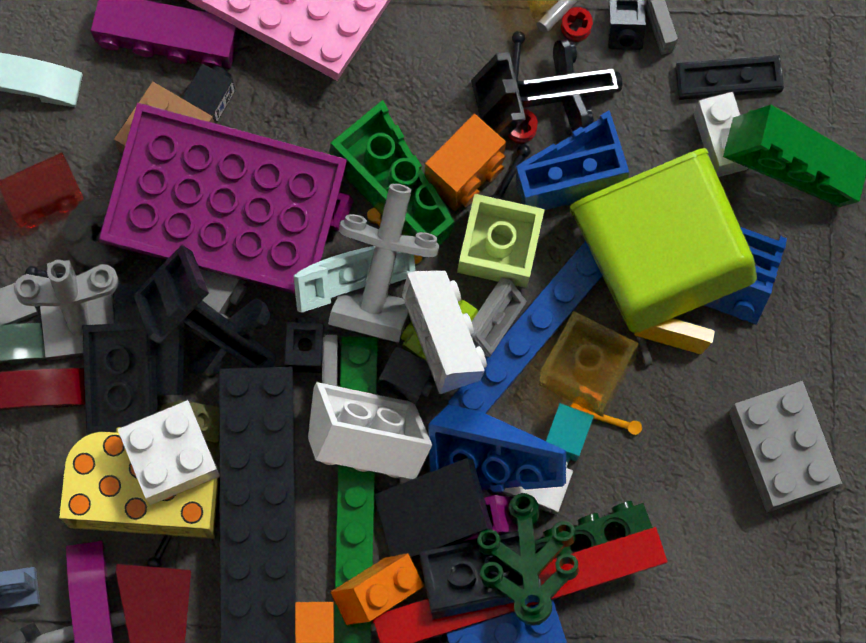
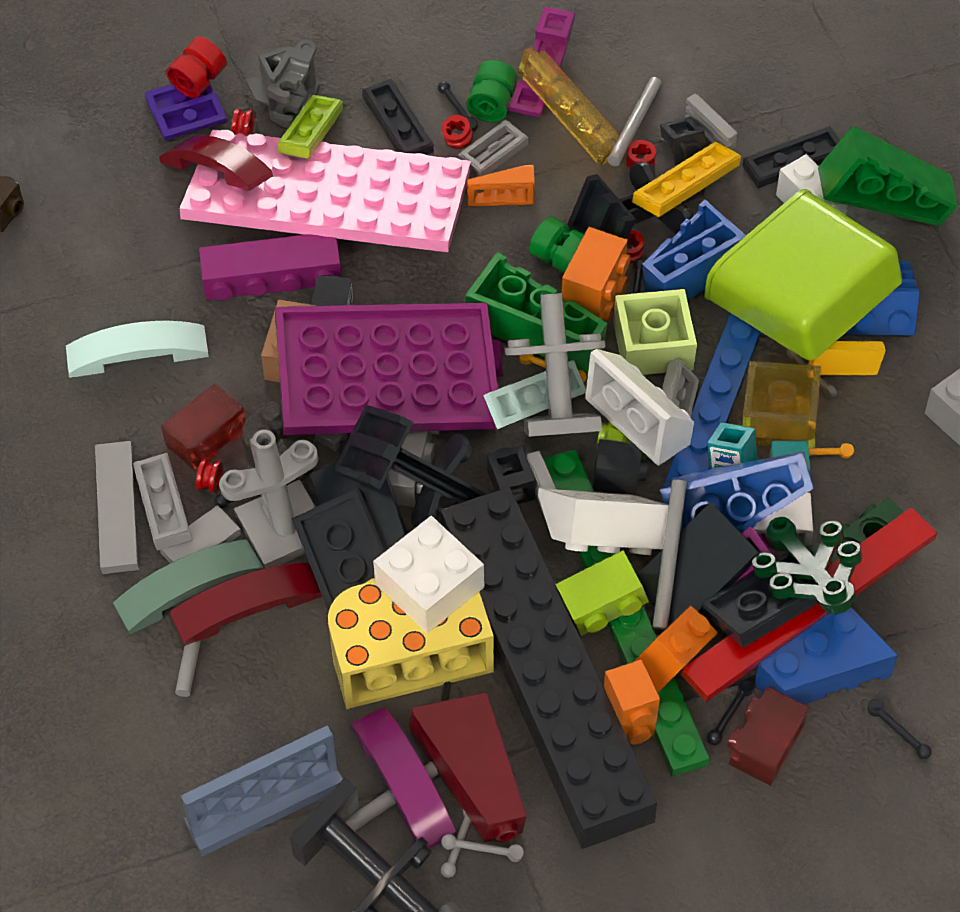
camera: 15 degrees left, 20 degrees down
(27, 245) = (209, 475): none -> red bush
(334, 509) = (602, 593): none -> lime brick
(412, 490) = (669, 554): none -> light grey bar
(429, 19) = (504, 187): none -> orange slope
(445, 98) = (555, 243): none -> green wheel
(519, 399) = (731, 445): none -> teal brick
(604, 76) = (686, 179): none -> yellow tile

